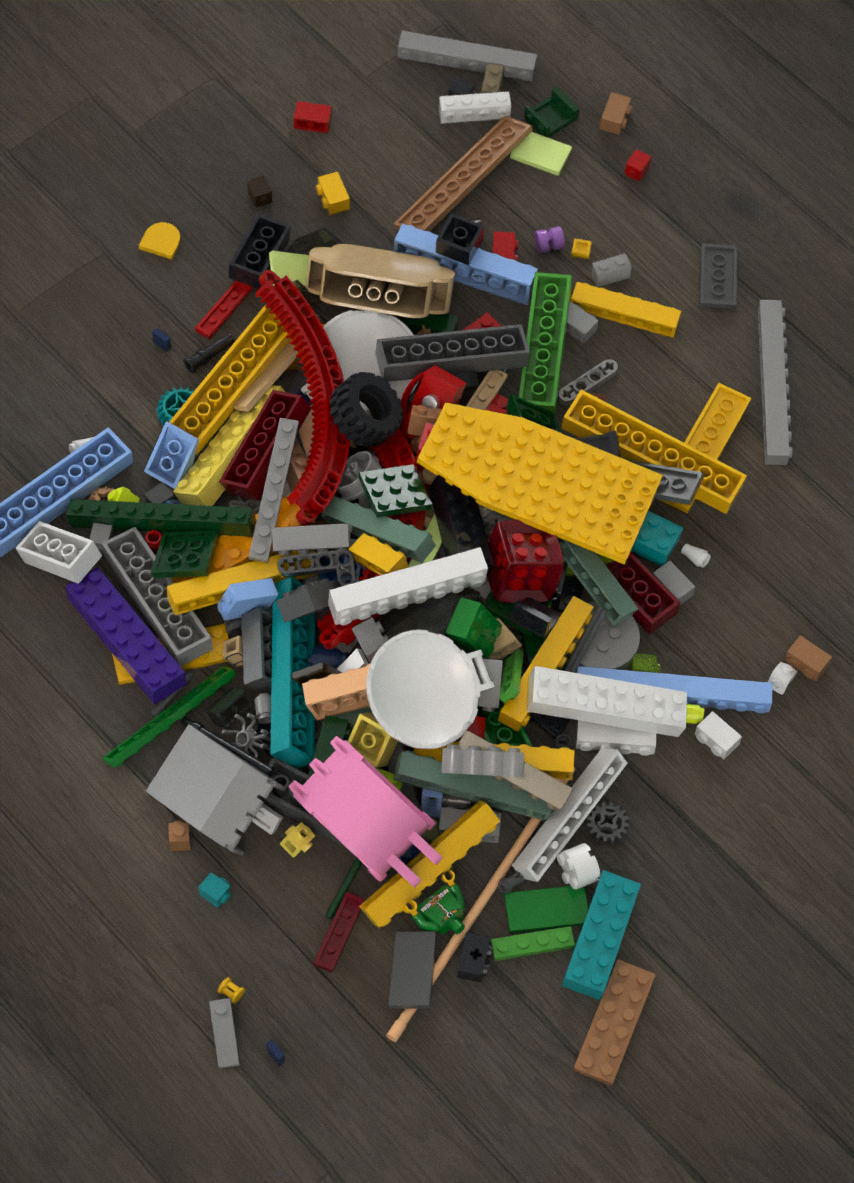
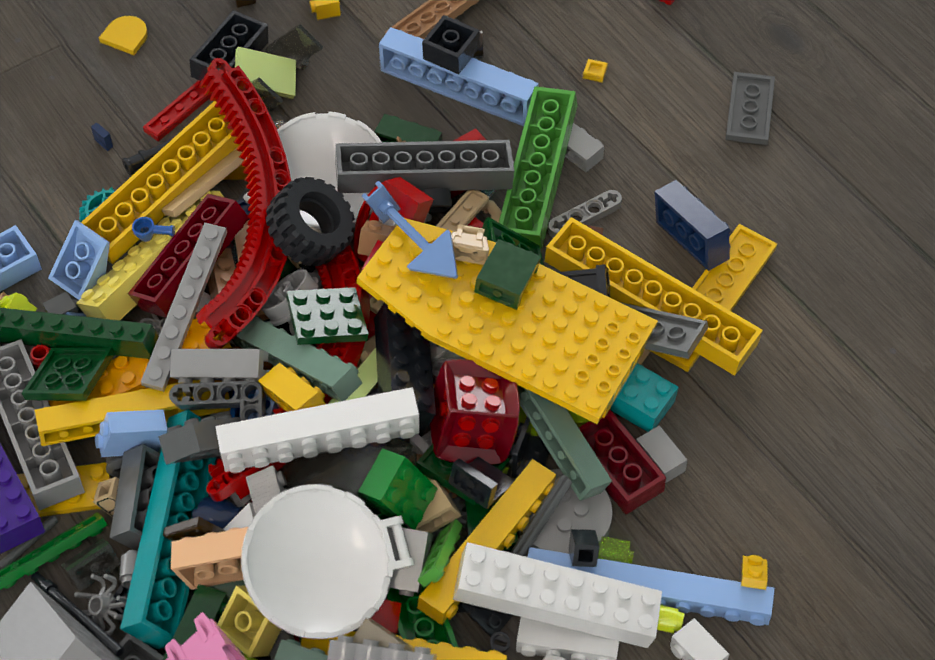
camera: 10 degrees right, 5 degrees down
(225, 420) = (145, 229): none -> blue bar
(379, 280) = (354, 85): tan brick -> none
(480, 436) = (436, 257): none -> medium blue piece
(504, 423) = (470, 244): none -> tan piece
(505, 245) = (508, 58): red brick -> none
(512, 386) = (493, 210): none -> tan arm
(539, 446) = (506, 274): none -> dark green panel
(549, 240) = (566, 57): medium lavender wheel -> none
(611, 270) = (625, 93): light grey brick -> none
(621, 663) = (583, 548): none -> black brick
(626, 309) = (640, 137): yellow brick -> none
(680, 387) = (692, 225): none -> dark blue brick
(697, 555) = (693, 422): white cone -> none
(755, 672) = (754, 572): none -> yellow plate
(773, 382) = (805, 230): light grey brick -> none
(781, 677) = (787, 581): white bracket -> none
(808, 658) = (823, 560): medium nougat brick -> none

